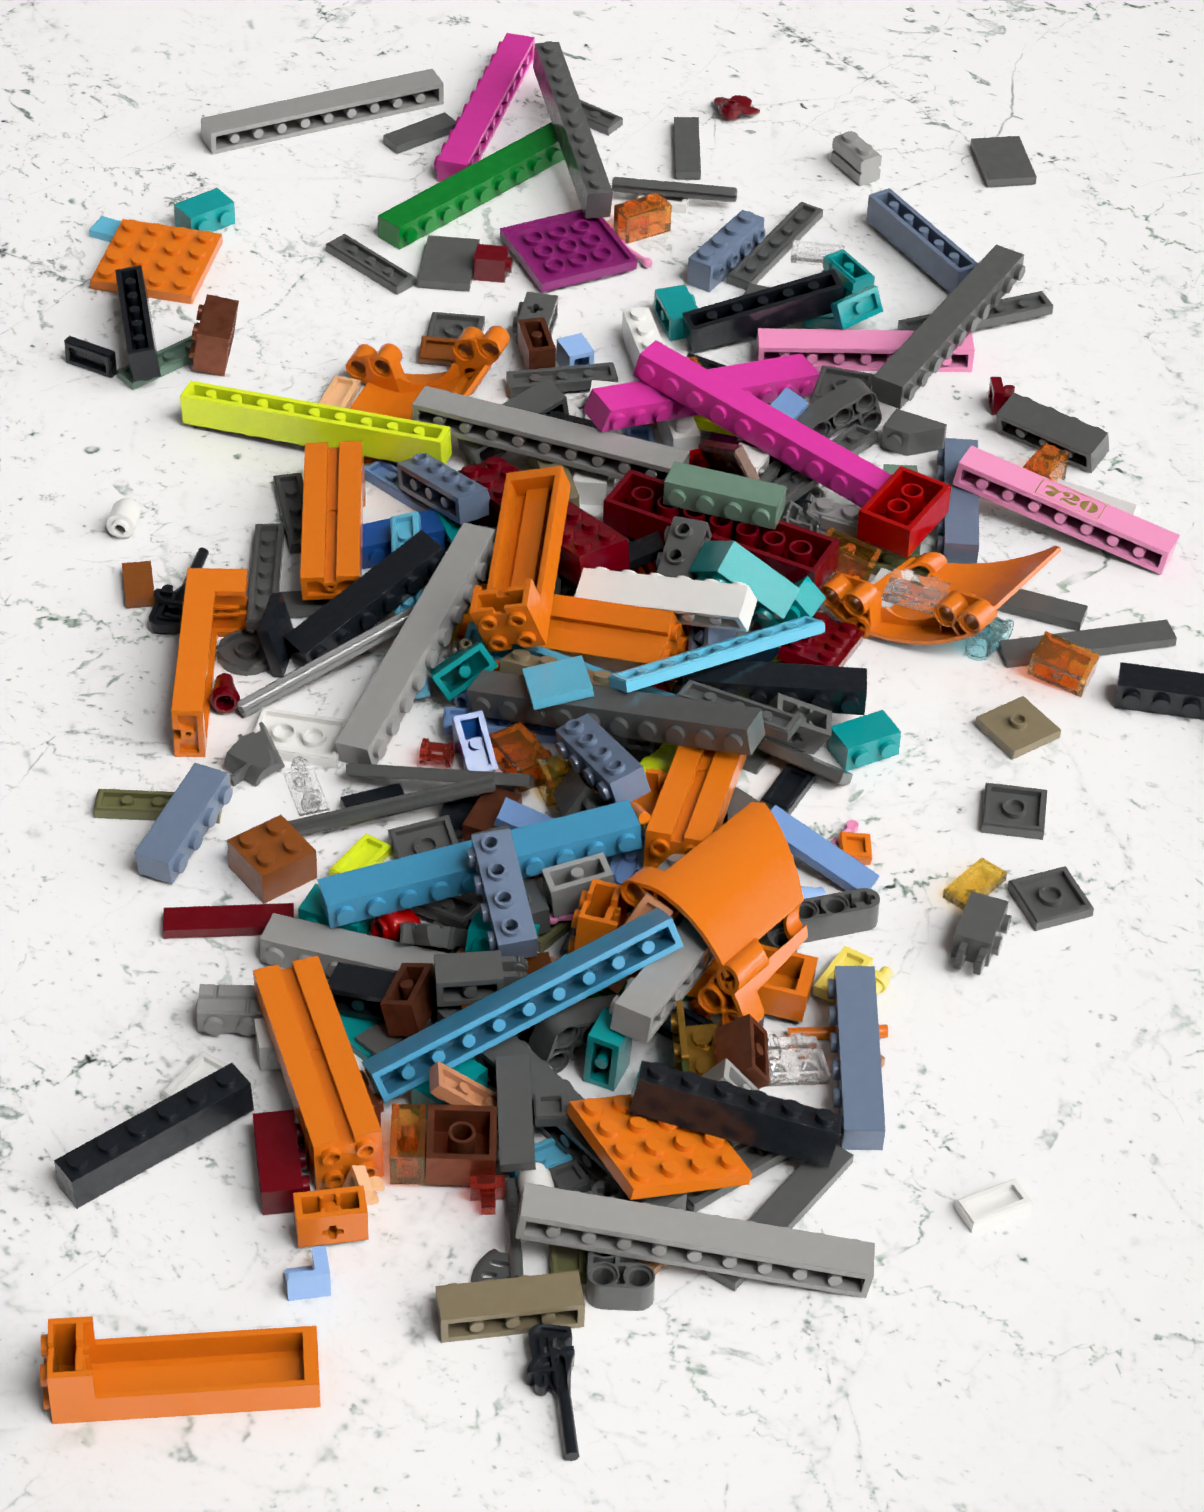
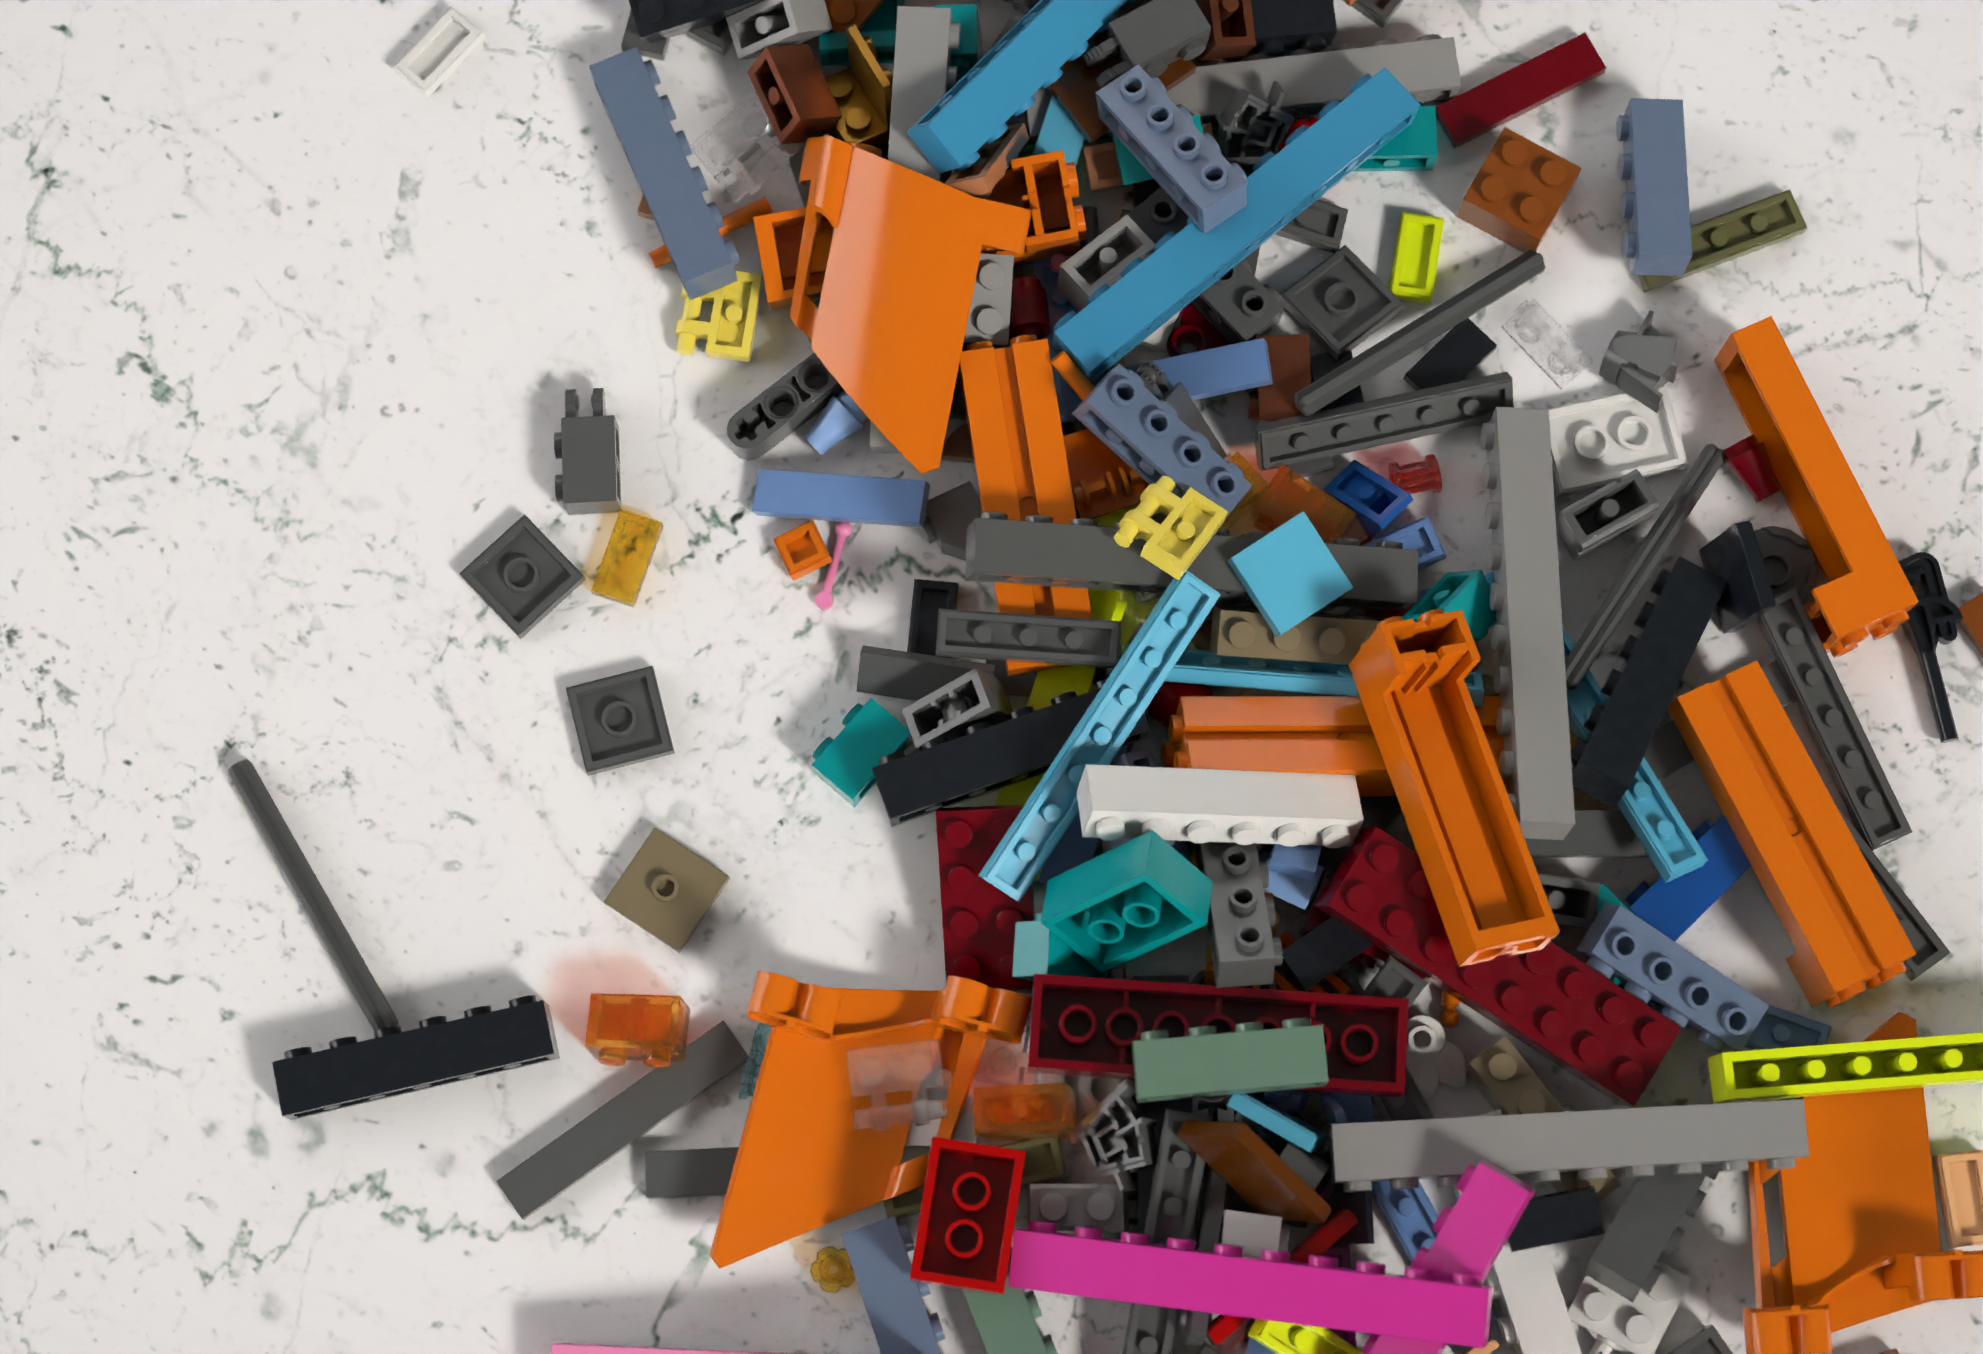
camera: 160 degrees right, 35 degrees up
(332, 690) = (1606, 514): none -> dark grey brick
(617, 697) = (1183, 533): none -> light yellow plate
(989, 549) = (820, 1269): none -> clear yellow plate

